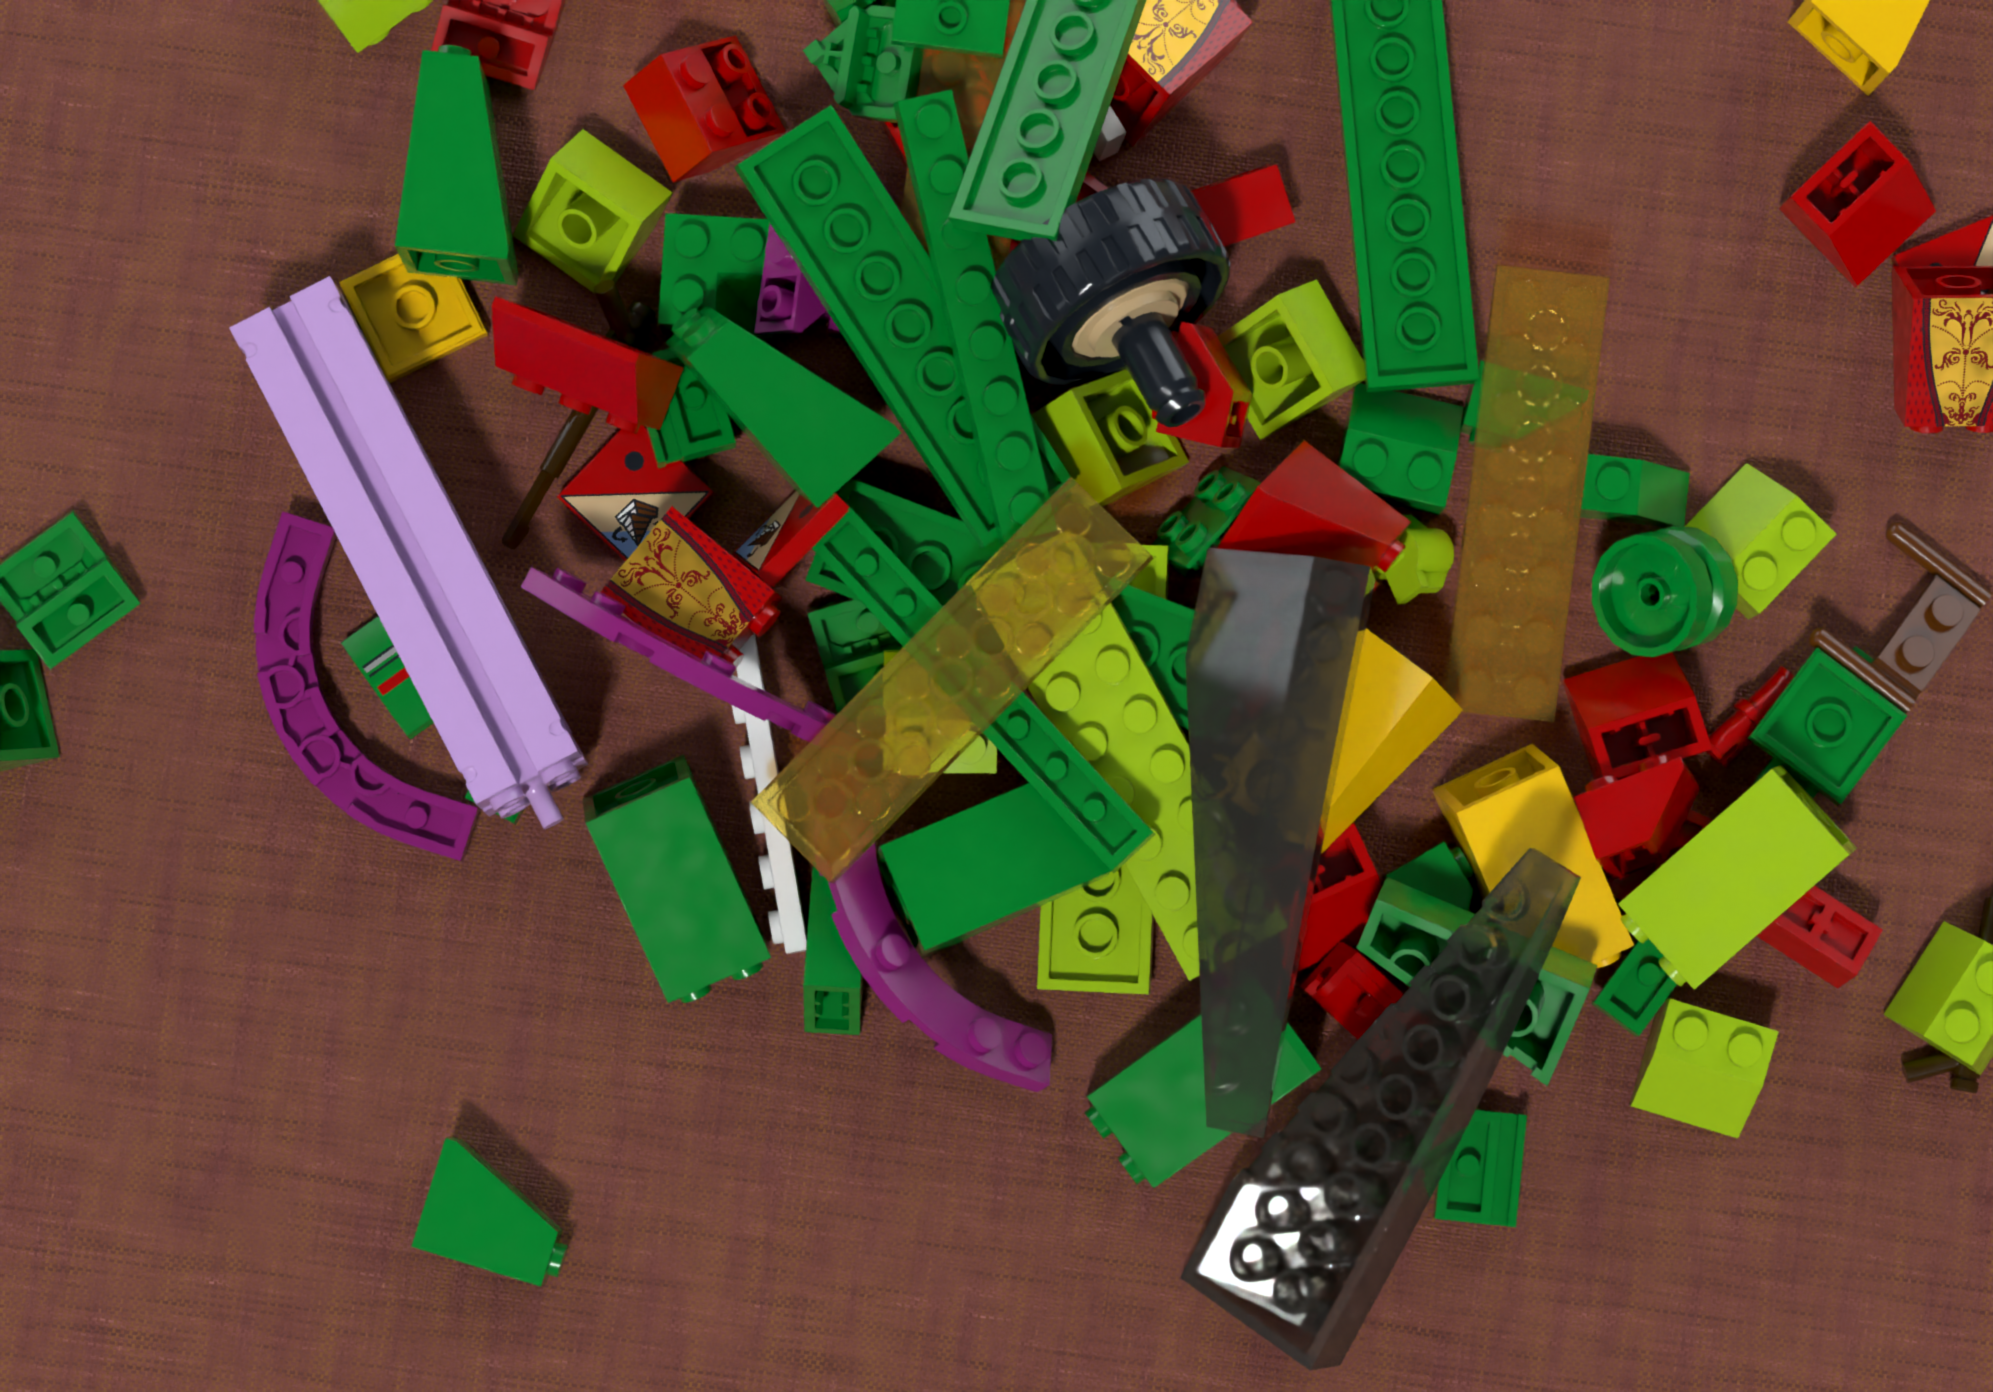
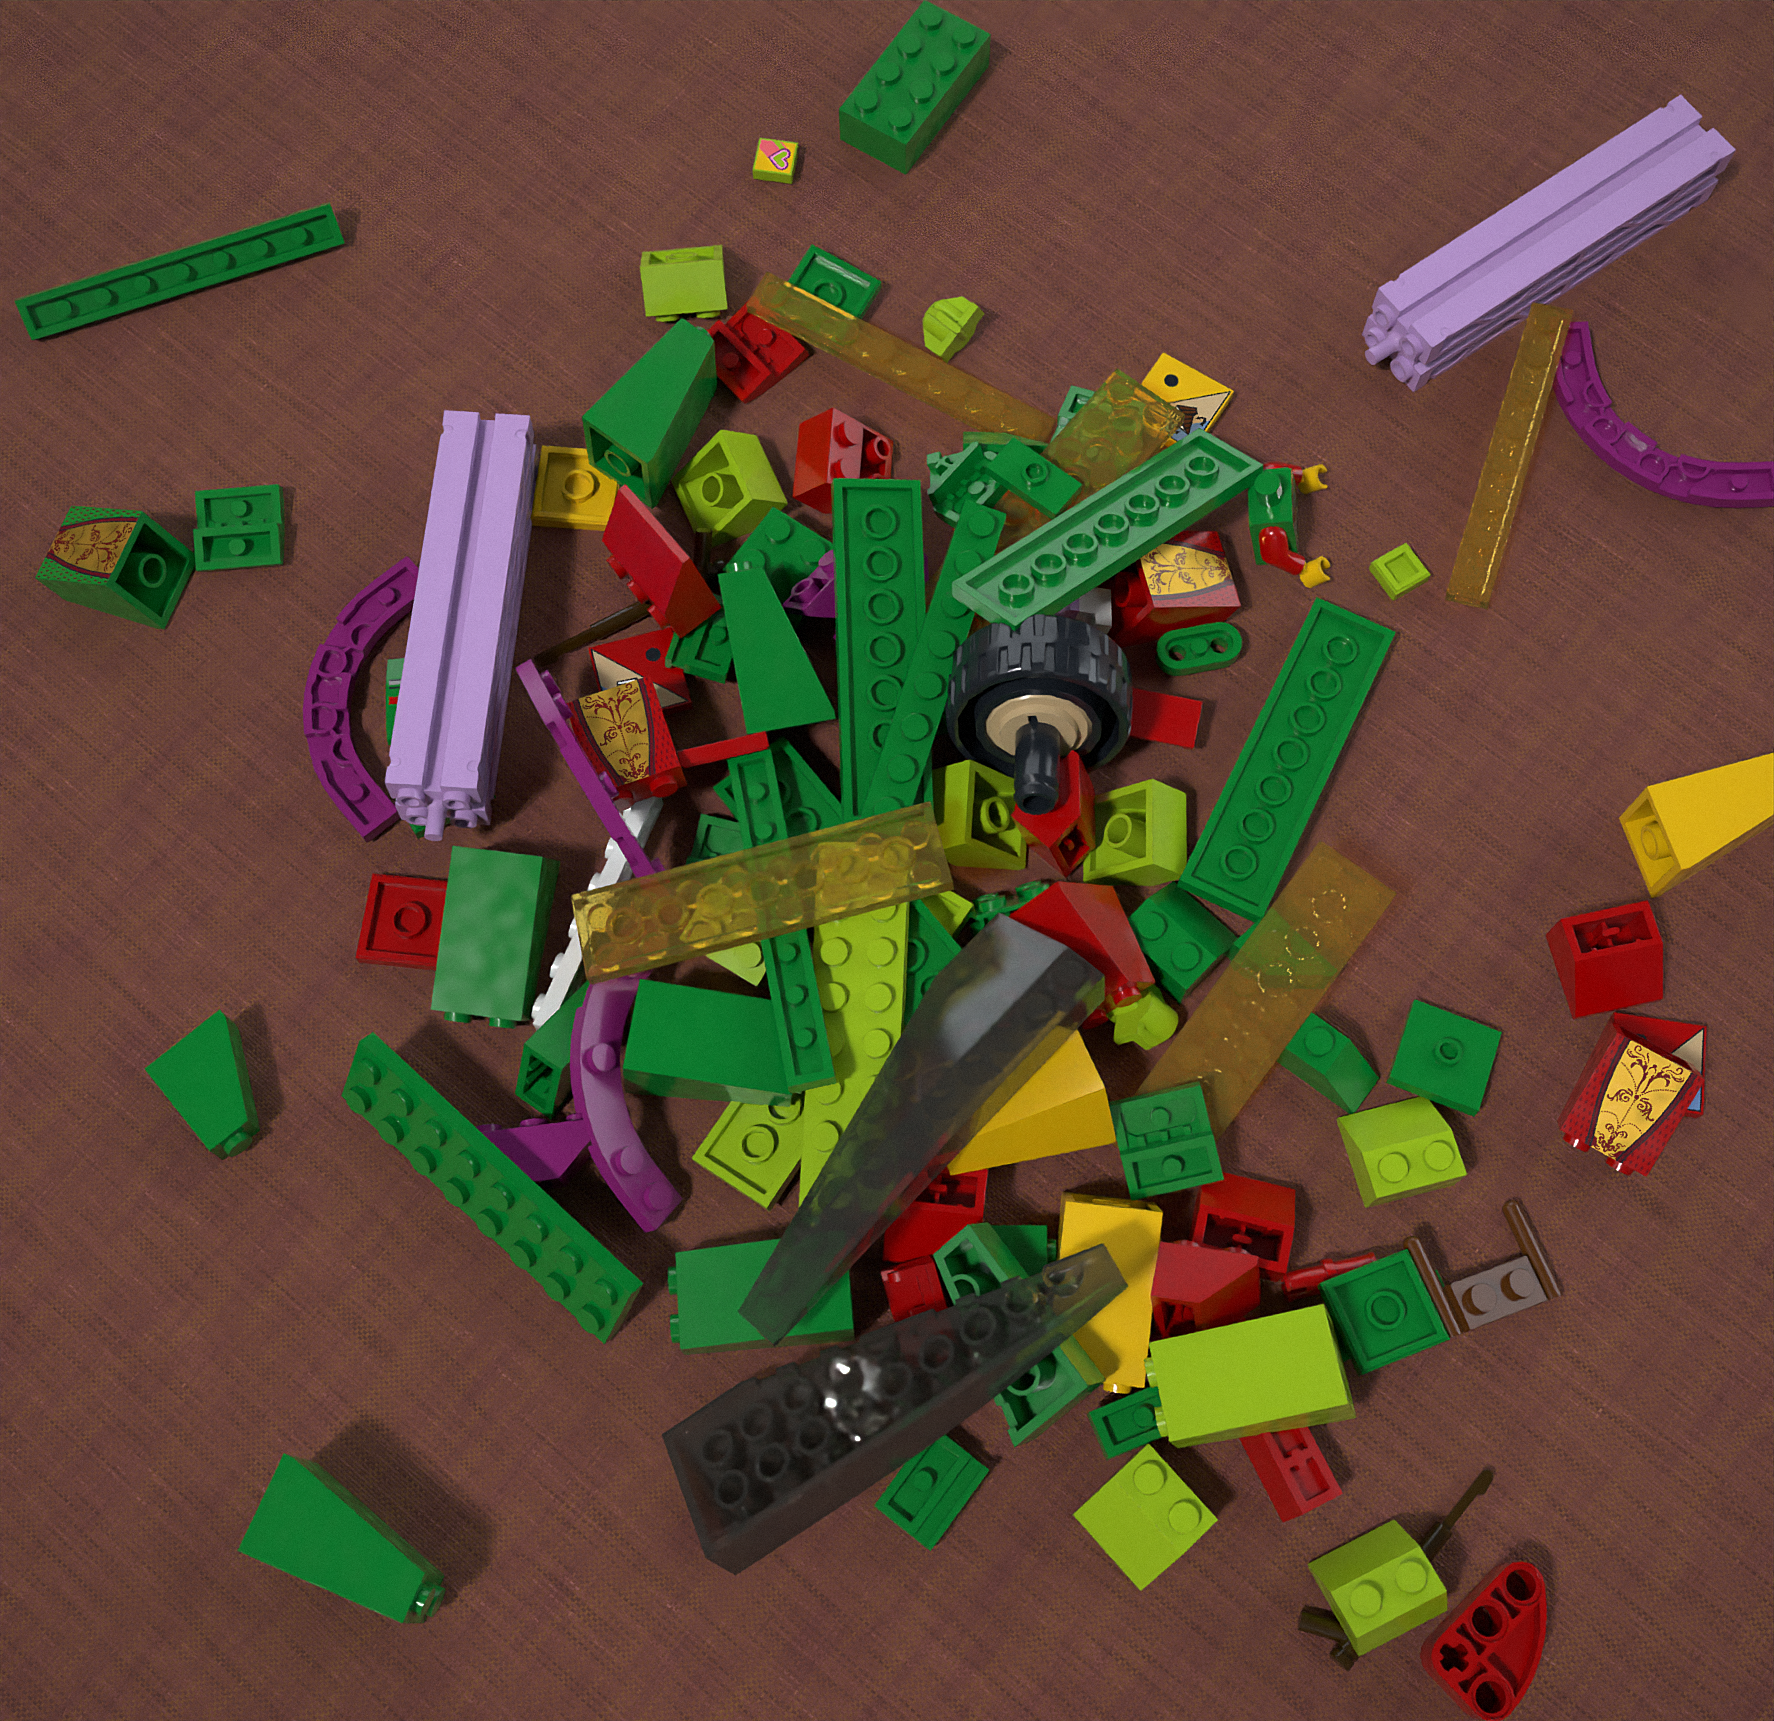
camera: 35 degrees right, 15 degrees down
(568, 919) = (402, 922): none -> red tile
(852, 1147) = (490, 1189): none -> green plate
(872, 1081) = (544, 1151): none -> magenta slope
(1229, 95) = (1195, 647): none -> green plate
(1513, 680) = (1165, 1141): none -> green slope
(1664, 591) = (1314, 1140): green wheel -> none
(1744, 412) = (1444, 1058): none -> green plate

